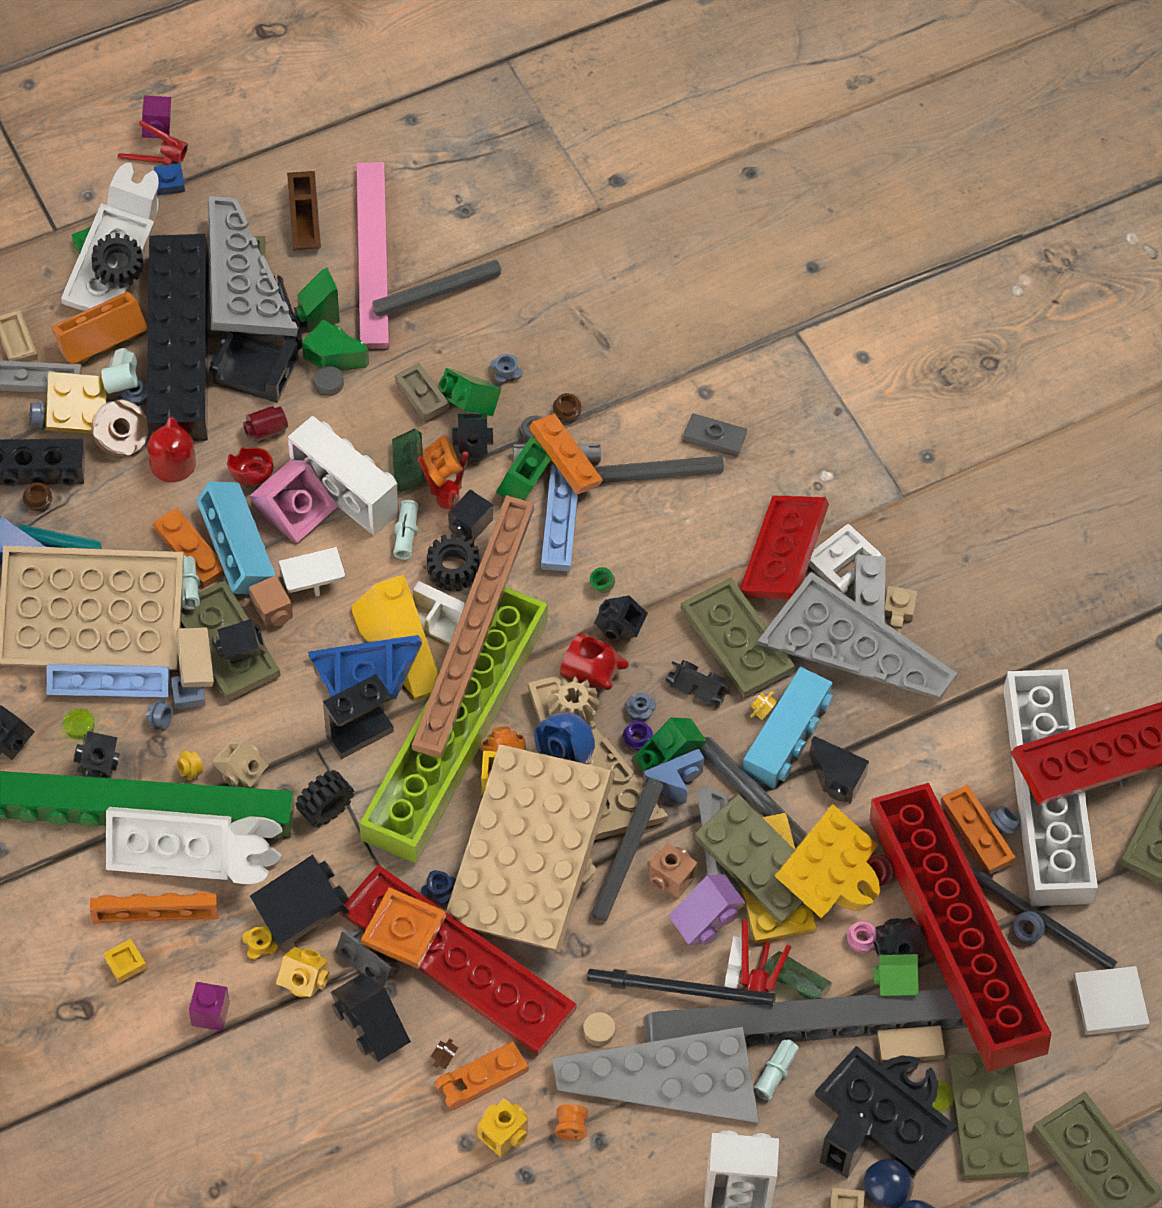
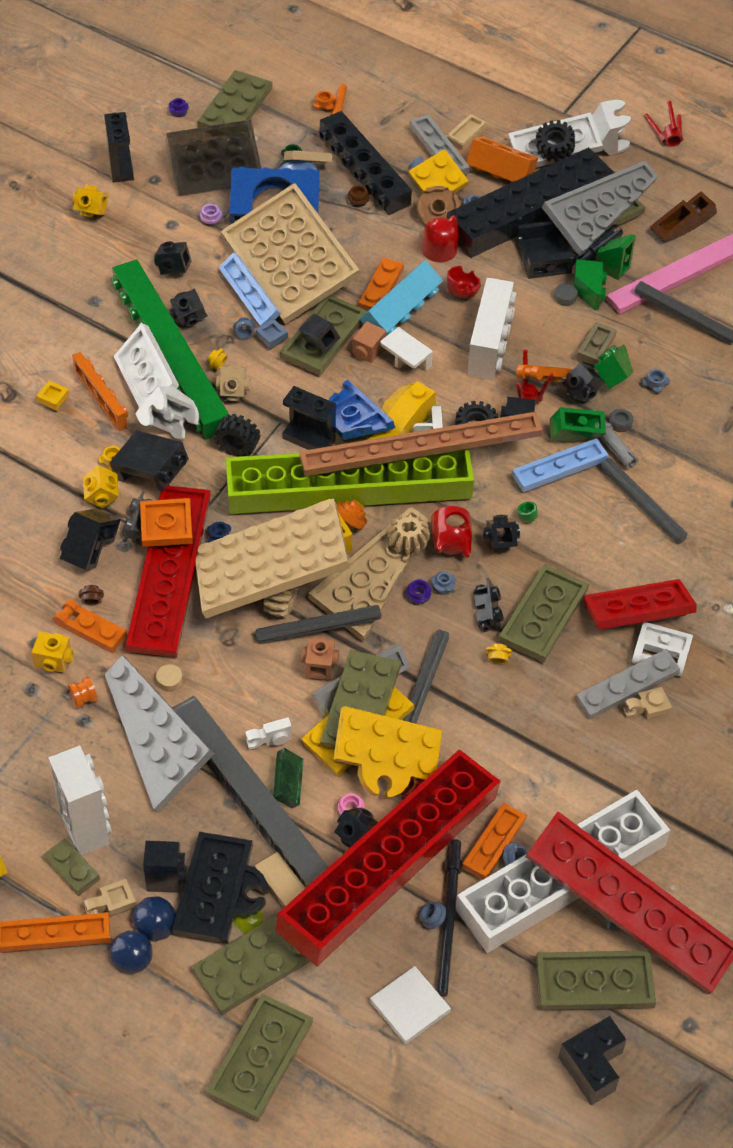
camera: 60 degrees right, 5 degrees down
(60, 540) = (335, 220): teal axle -> none
(78, 722) = (210, 294): clear neon green tile -> none
(121, 372) = (476, 184): light aqua piece -> none
(156, 113) = (687, 112): magenta brick -> none
(170, 179) = (649, 145): blue plate -> none
(190, 585) = (348, 291): light aqua axle -> none
(194, 657) = (292, 319): tan tile -> none
(209, 1006) = (45, 451): magenta brick -> none
(265, 423) = (503, 272): dark red brick -> none
(294, 500) = (453, 317): bright pink slope -> none
(406, 468) = (543, 357): clear green plate -> none
(406, 529) = (481, 386): light aqua pin -> none
(565, 454) = (607, 438): orange plate -> none
(565, 737) = (372, 541): blue cylinder -> none
(567, 407) = (653, 428): reddish brown plate -> none
(621, 979) = (216, 673): black bar -> none
(671, 741) = (421, 612): green slope -> none
(673, 774) = (399, 623): medium blue slope -> none
(707, 910) = (298, 690): medium lavender brick -> none
(715, 435) = (704, 523): dark grey plate -> none
(759, 979) = (264, 753): red plant -> none
(776, 1069) = (204, 800): light aqua axle -> none
(787, 728) = (490, 677): medium azure brick -> none
(837, 769) = (477, 726): black slope -> none
(840, 633) = (589, 668): light grey wing -> none
(897, 975) = (324, 837): bright green brick -> none

